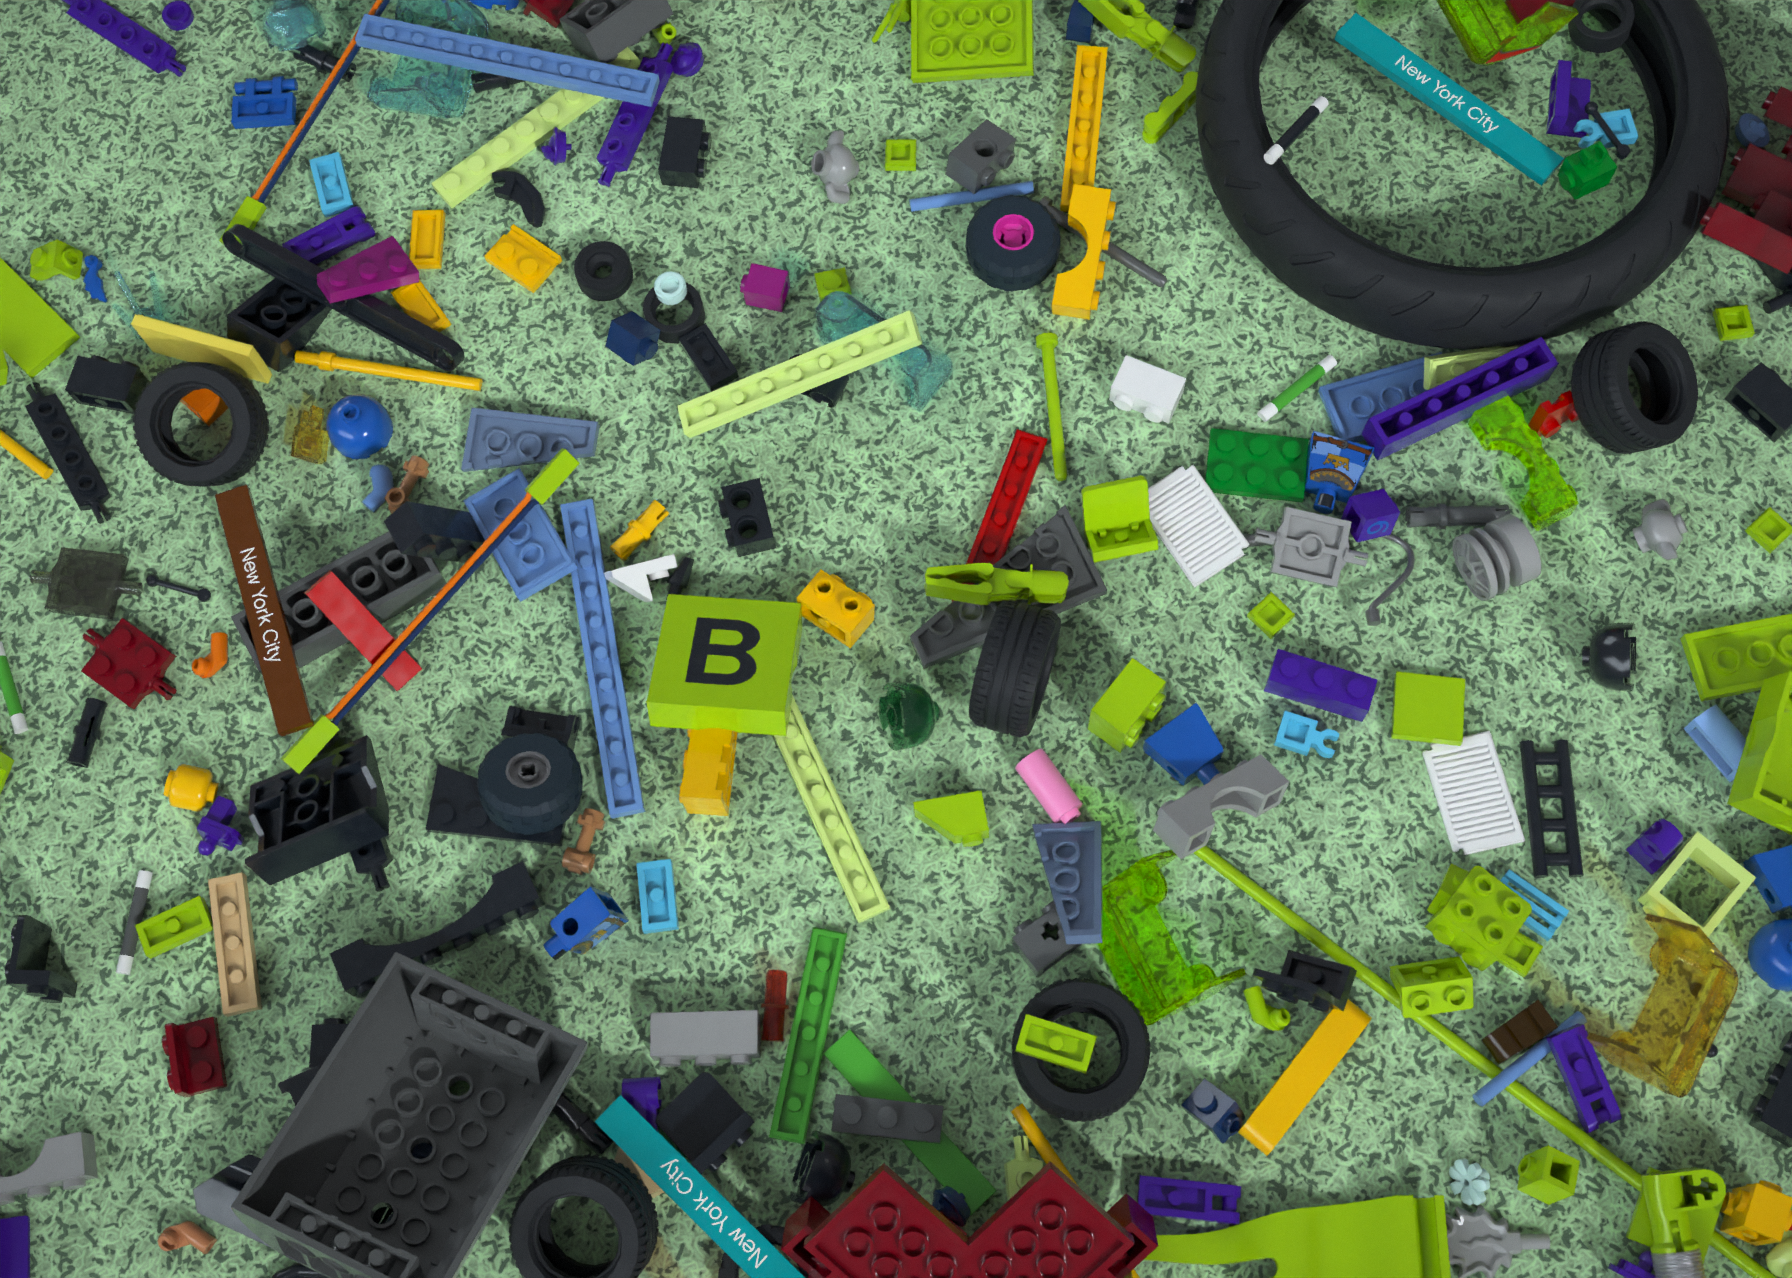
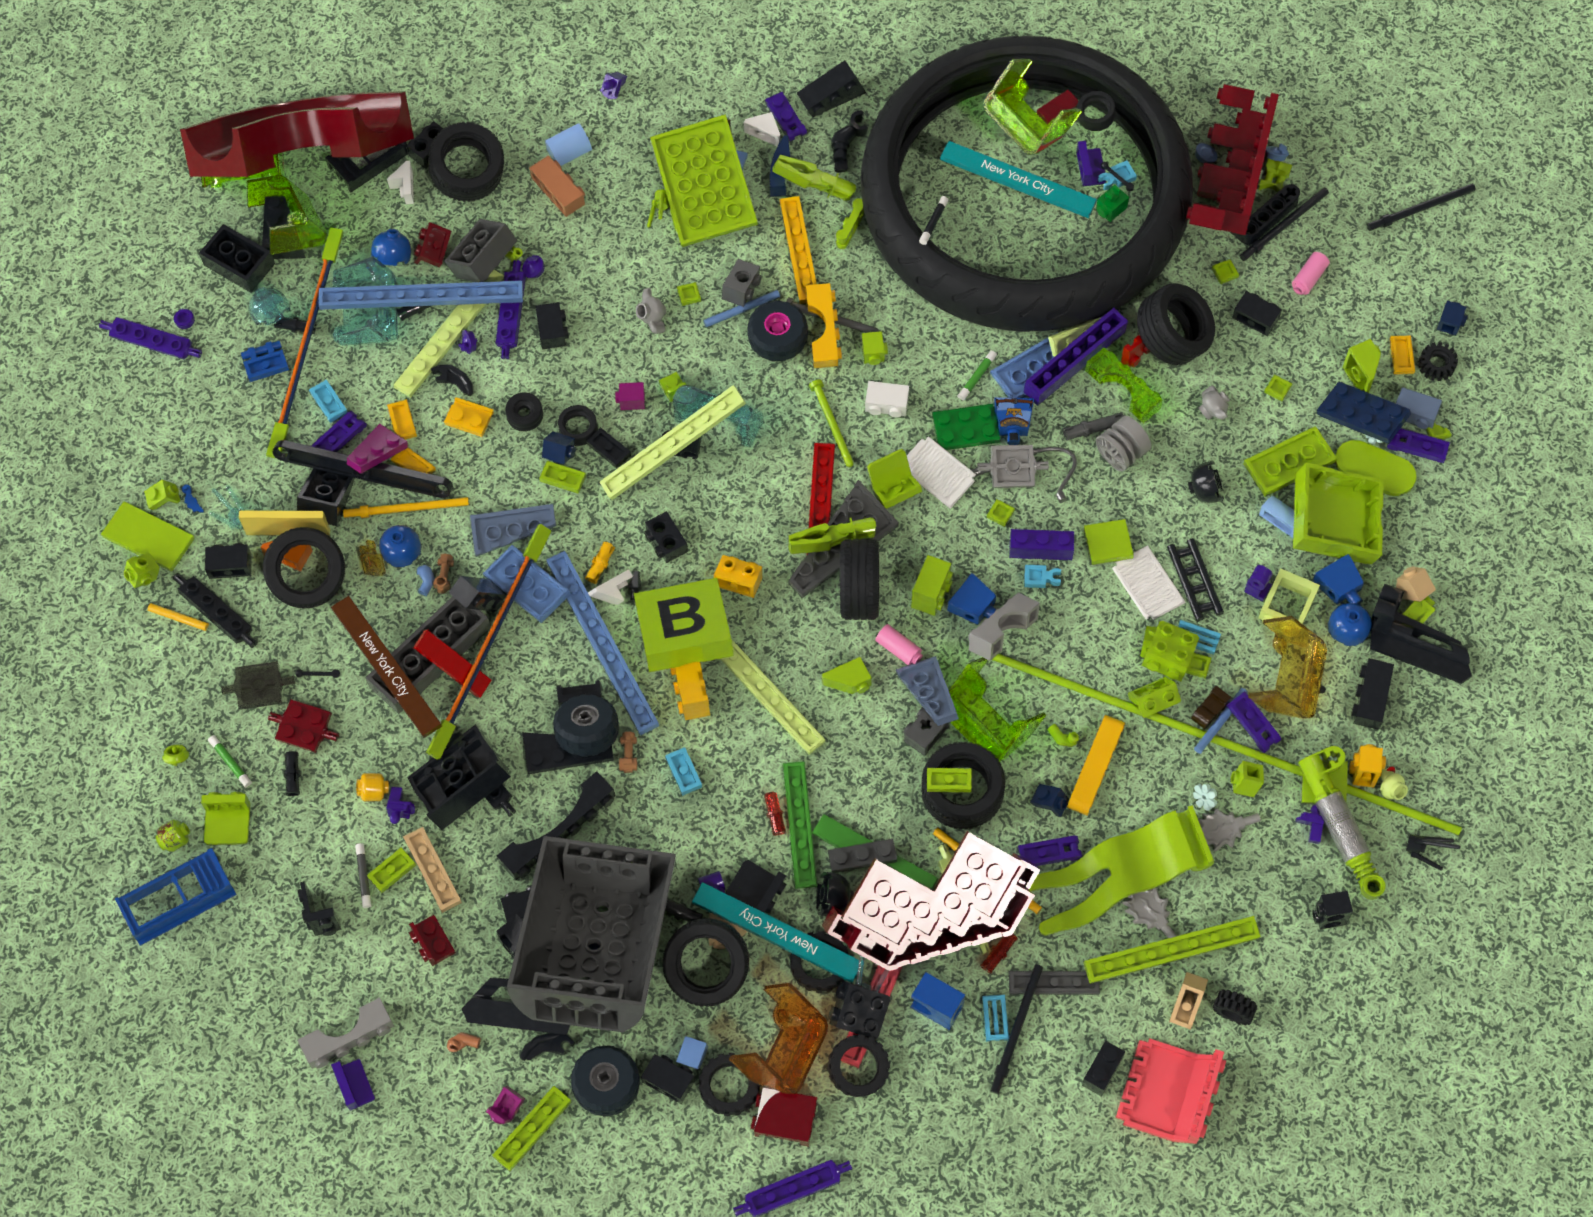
camera: 20 degrees left, 5 degrees down
(215, 660) = (358, 708): orange arm -> none
(585, 923) = (648, 789): blue torso -> none
(627, 384) = (562, 477): none -> lime plate
(670, 288) = (572, 411): light aqua tile -> none
(705, 1037) = (739, 841): light grey brick -> none
(910, 709) = (801, 621): clear green cylinder -> none
(1150, 305) = (874, 348): none -> lime brick
(1310, 979) = (1083, 711): black bracket -> none
(1371, 515) = (1043, 438): dark purple brick -> none

